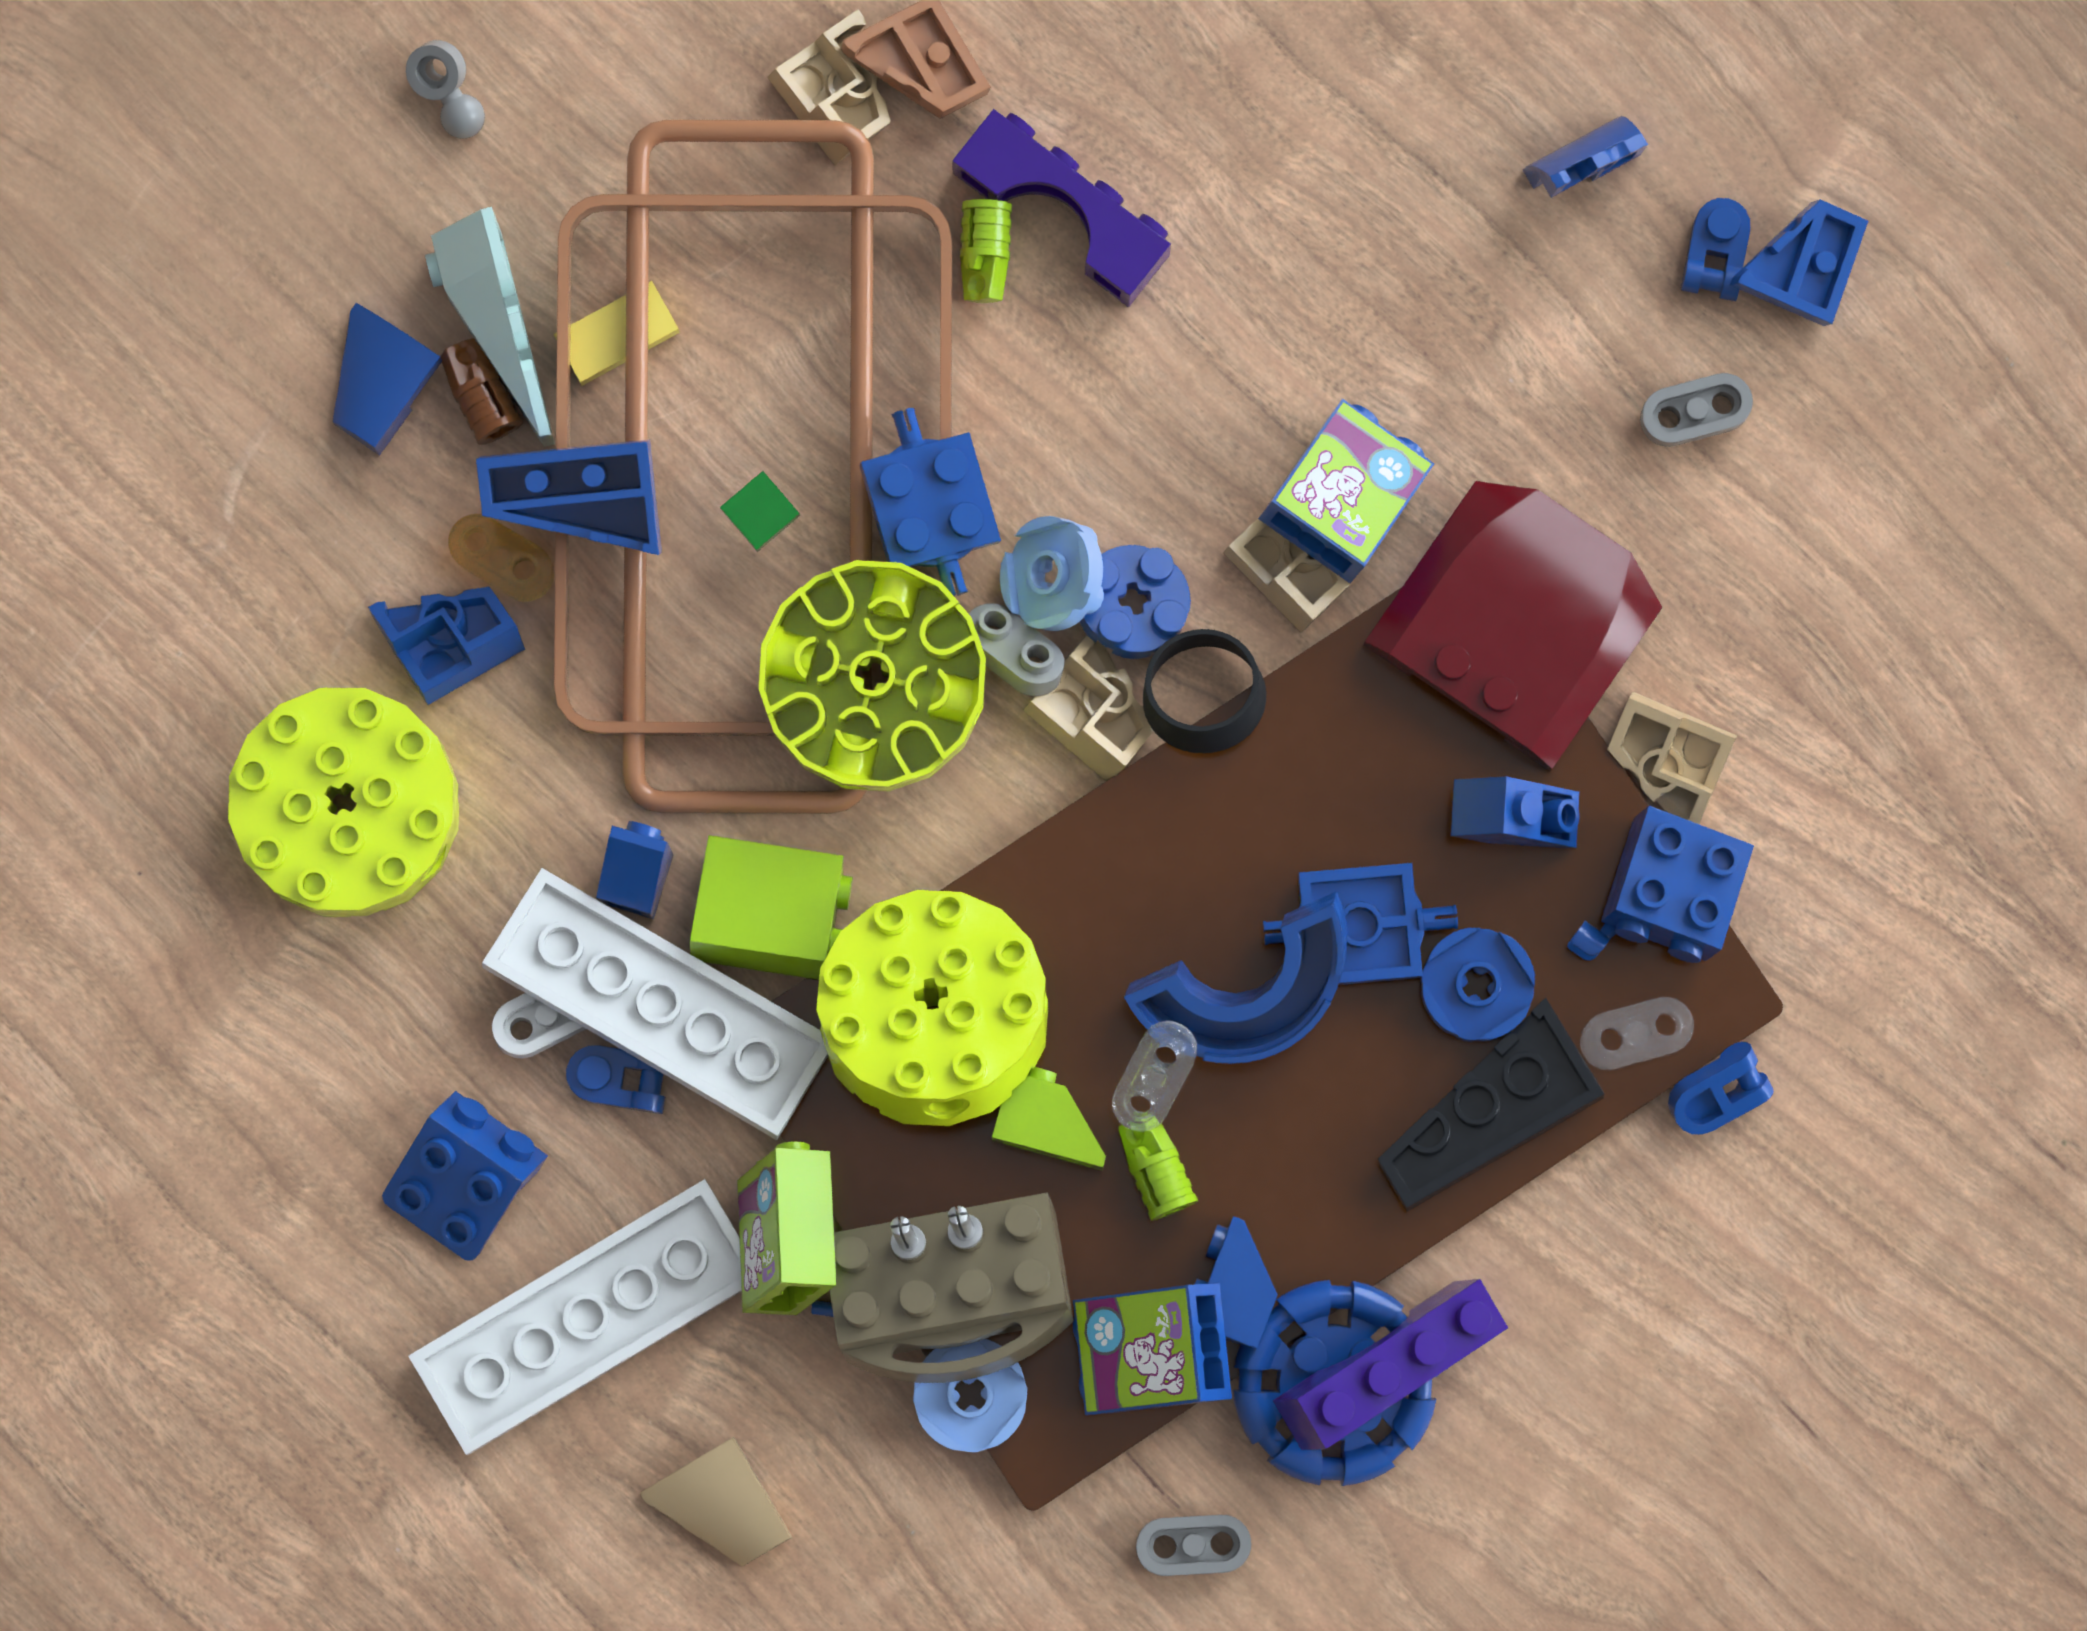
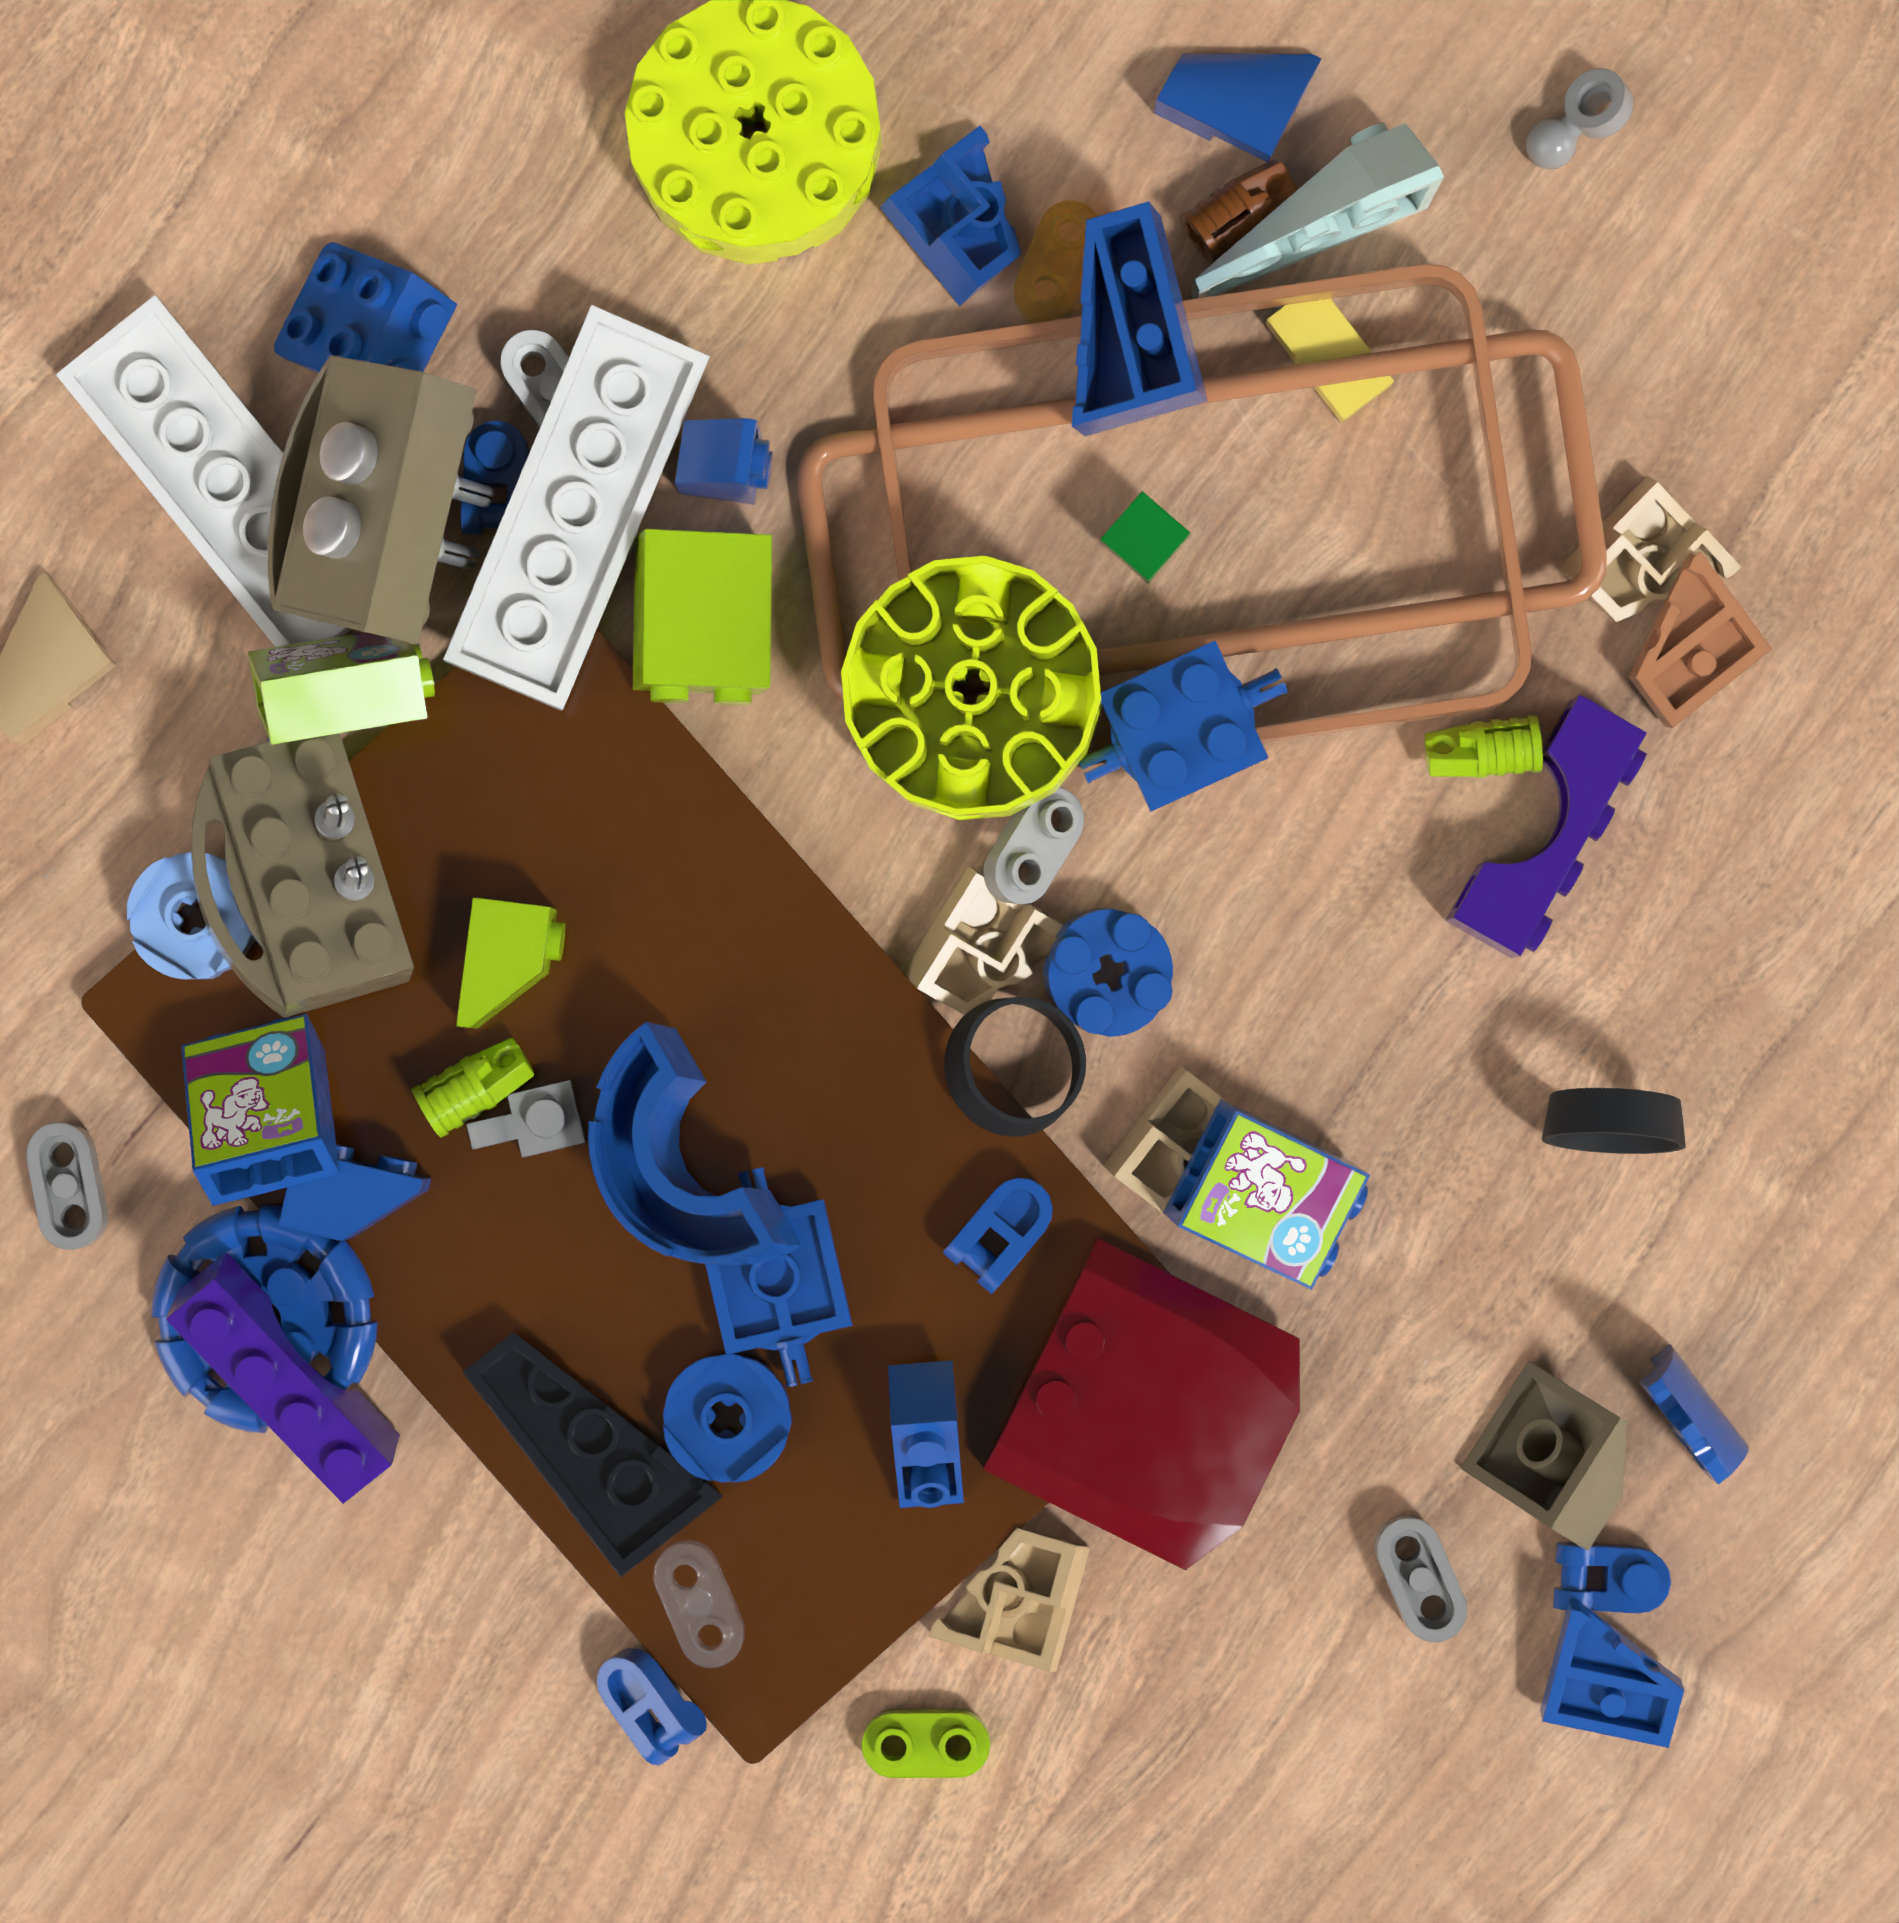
camera: 90 degrees right, 5 degrees up
(630, 1174) = (370, 497): none -> dark tan piece
(924, 954) = (581, 867): neon yellow brick -> none
(1078, 579) = (1129, 904): light blue plate -> none
(1153, 1078) = (559, 1066): clear plate -> none
(1195, 1117) = (540, 1120): none -> light grey plate
(1325, 185) = (1614, 1121): none -> black tyre
(1332, 707) = (1018, 1213): none -> blue plate
(1590, 941) = (793, 1539): blue hand -> none
(1605, 280) = (1553, 1455): none -> dark tan slope
(1676, 885) = (868, 1628): blue brick -> none
(1784, 855) = (925, 1739): none -> lime plate

